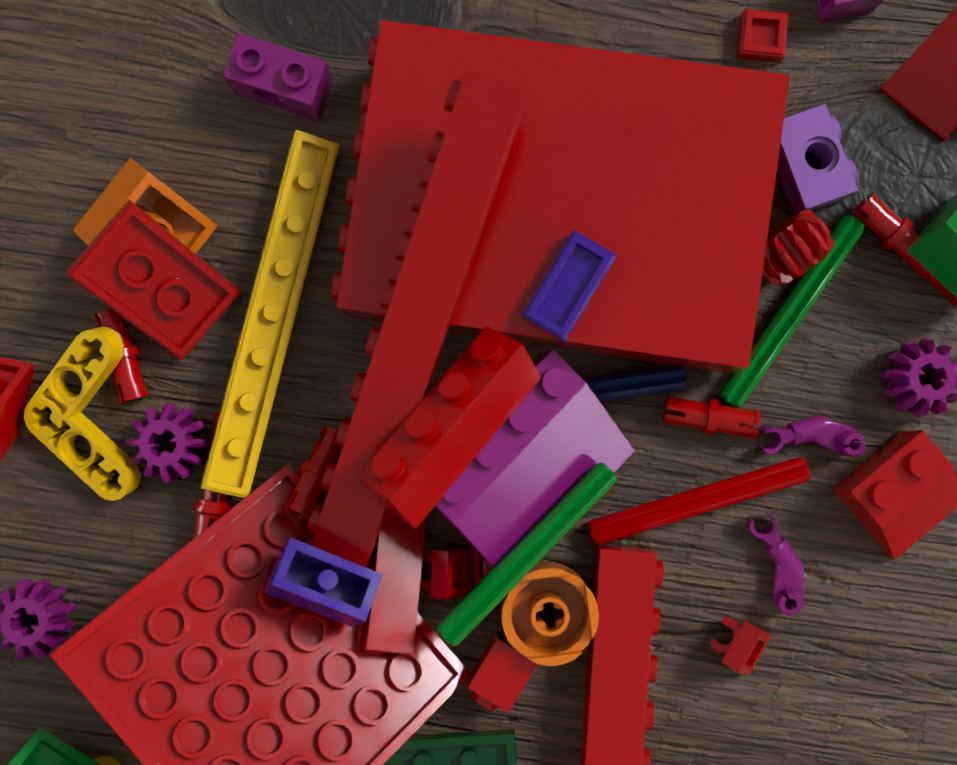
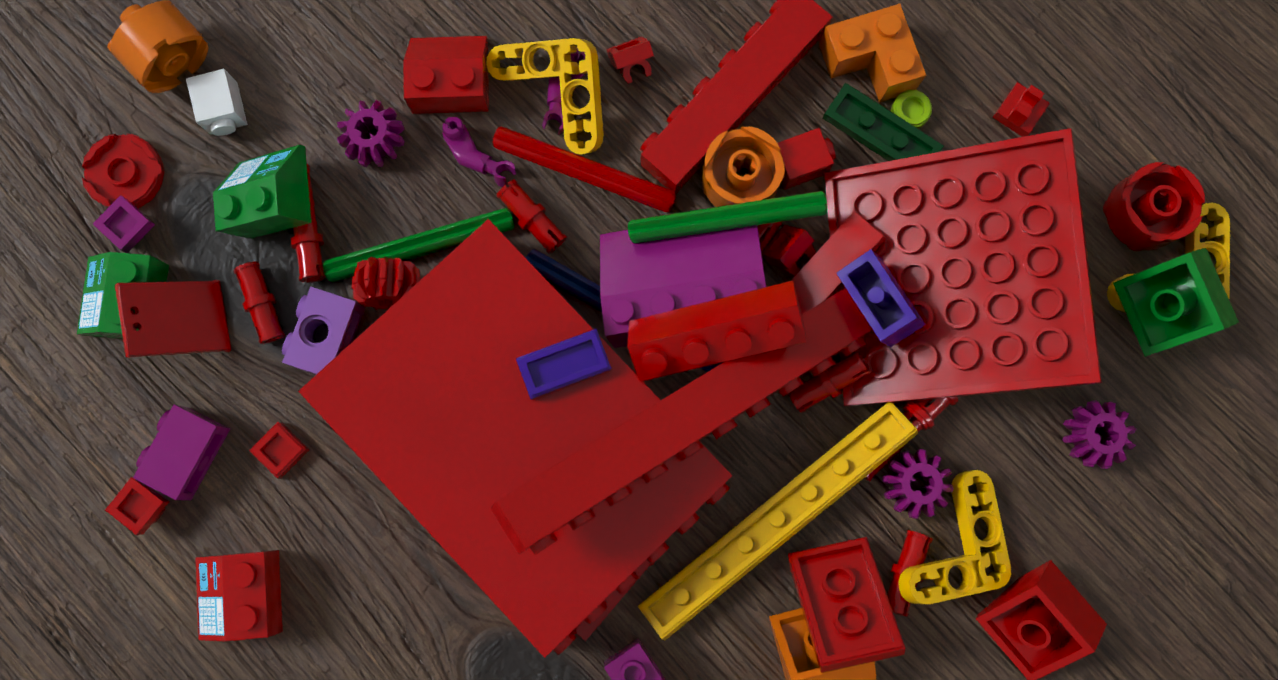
camera: 145 degrees left, 5 degrees down
(795, 581) = (561, 67): none -> yellow beam
(891, 146) = (259, 302): none -> red pin

